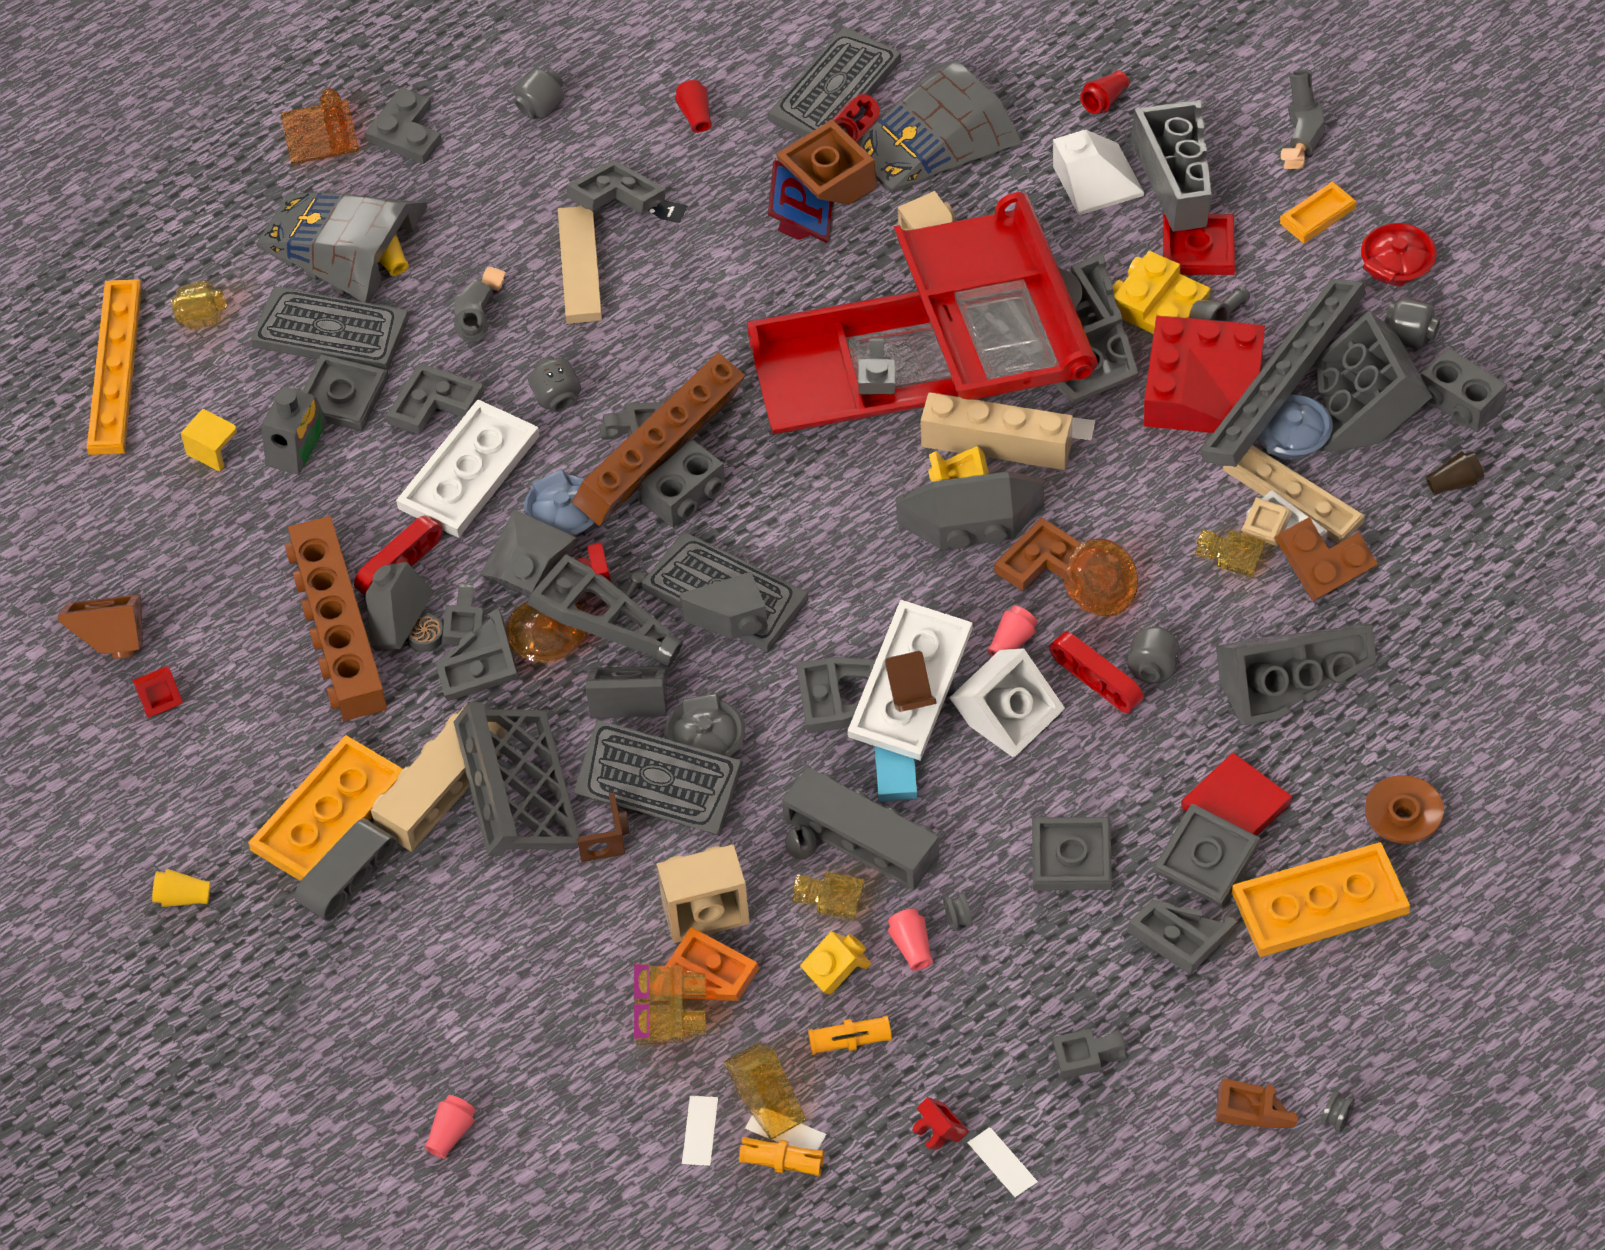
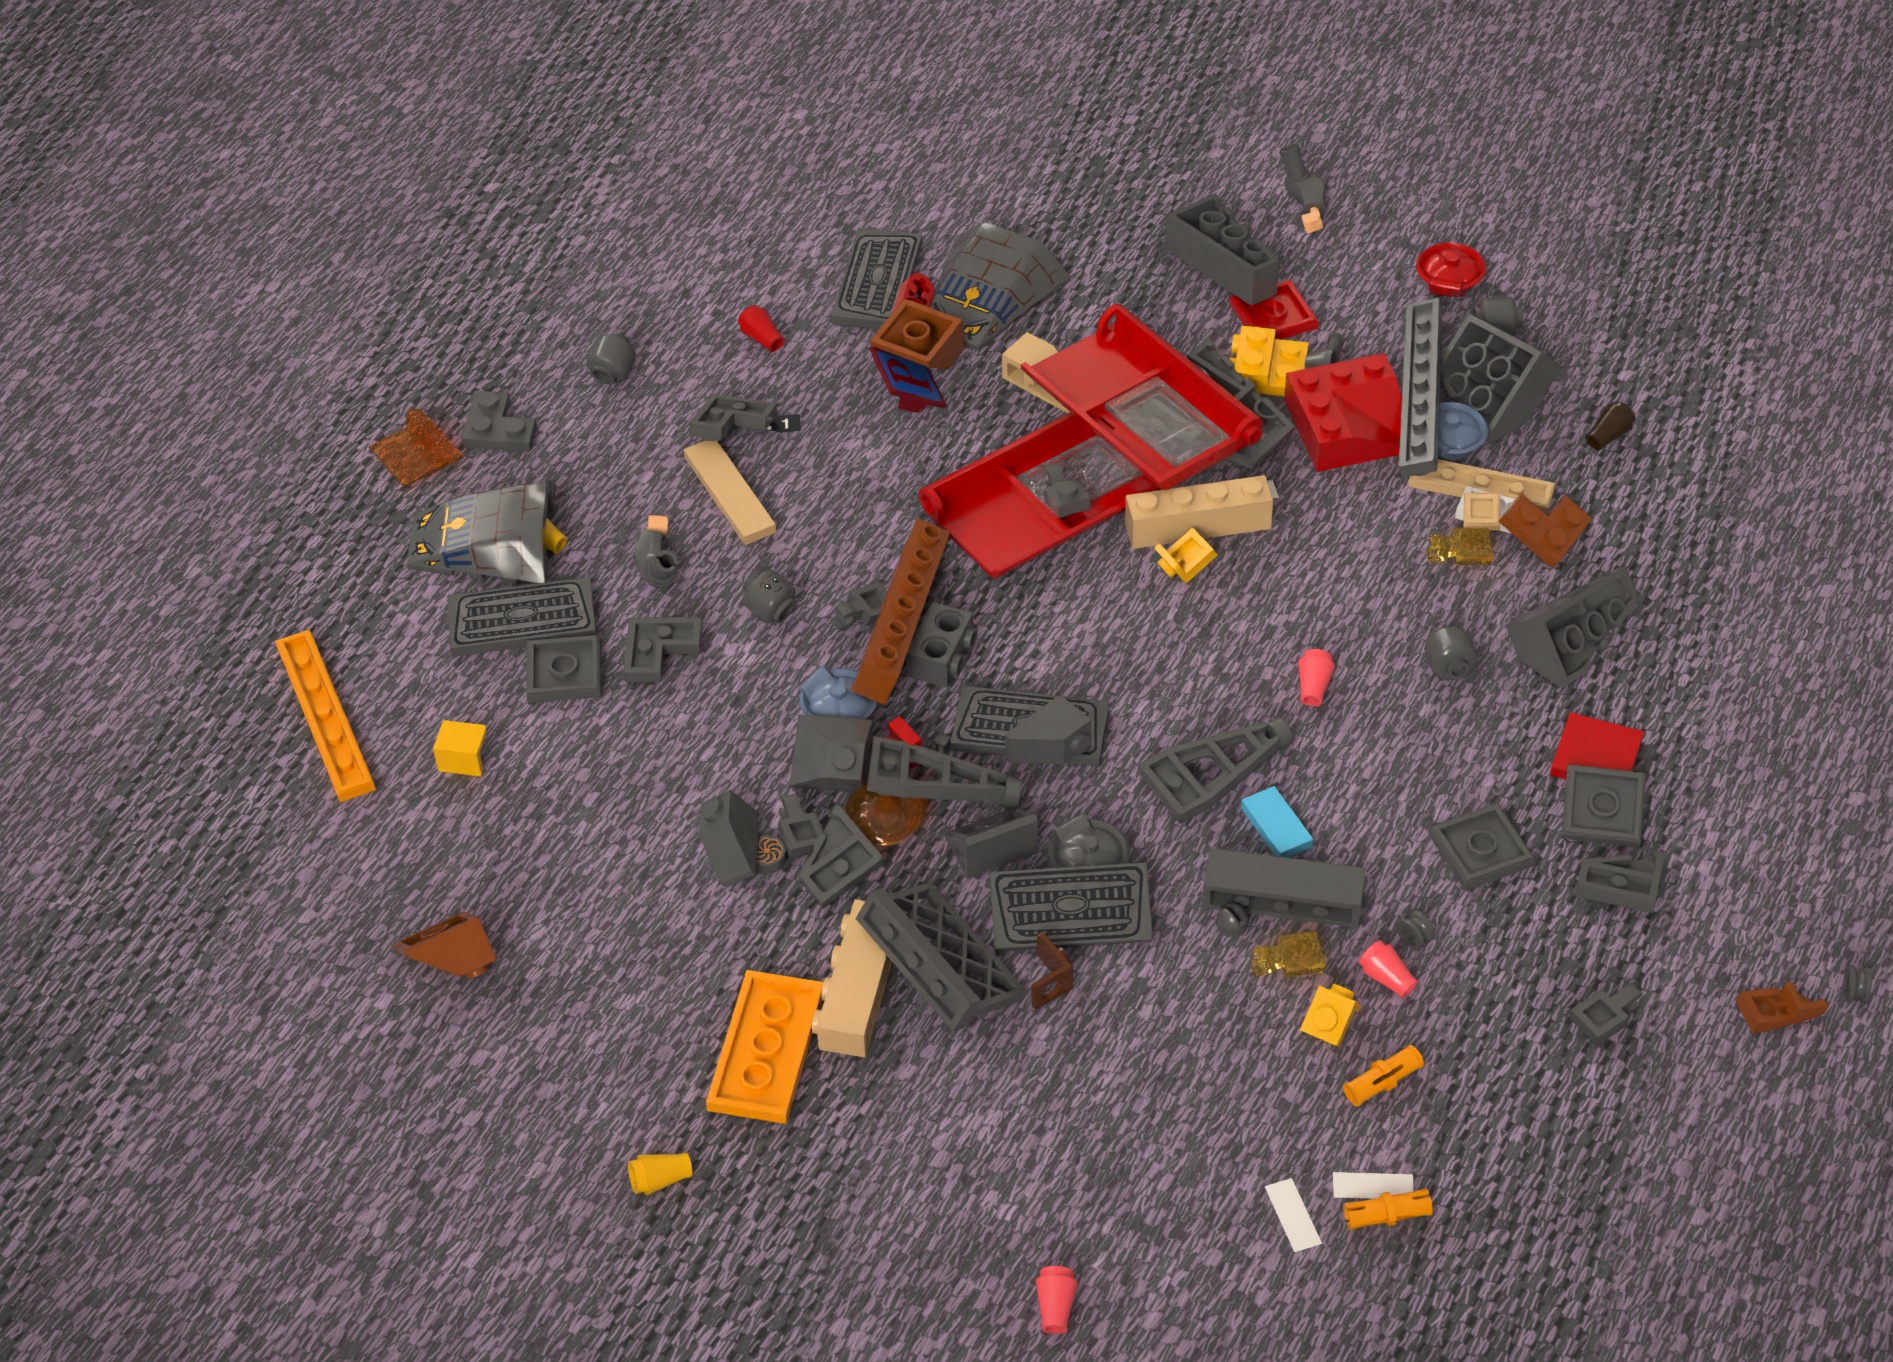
camera: 25 degrees left, 5 degrees down
(157, 691) = (534, 993): red tile -> none
(198, 305) = (382, 633): clear yellow head -> none
(291, 429) = (542, 698): dark grey torso -> none
(336, 619) = (676, 869): dark orange brick -> none
(345, 869) = (815, 1094): dark grey beam -> none
(406, 547) = (708, 785): red beam -> none
(468, 467) = (727, 696): white plate -> none
(660, 1004) = (1200, 1107): clear yellow hips -> none
(703, 892) = (1181, 992): tan brick -> none
(725, 969) = (1215, 1065): orange wing -> none
(765, 1089) = (1338, 1150): clear yellow slope -> none
(909, 681) = (1267, 740): reddish brown bracket -> none
(941, 1120) = (1515, 1121): red tile -> none
(942, 644) = (1258, 741): white plate -> none
(971, 509) = (1213, 584): dark grey wedge -> none
(1002, 1162) = (1587, 1140): white sticker -> none
(1008, 701) = (1347, 733): white slope -> none
(1035, 551) = (1304, 594): dark orange plate -> none
(1094, 171) = (1148, 281): white slope -> none
(1096, 672) = (1443, 693): red beam -> none
(1101, 577) = (1369, 603): clear orange piece -> none
(1103, 92) = (1118, 217): red cone -> none
(1318, 212) = (1358, 258): light orange tile -> none
(1320, 899) = (1724, 809): light orange plate -> none
(1406, 796) = (1747, 709): dark orange dish -> none
(1464, 390) = (1581, 355): dark grey brick -> none

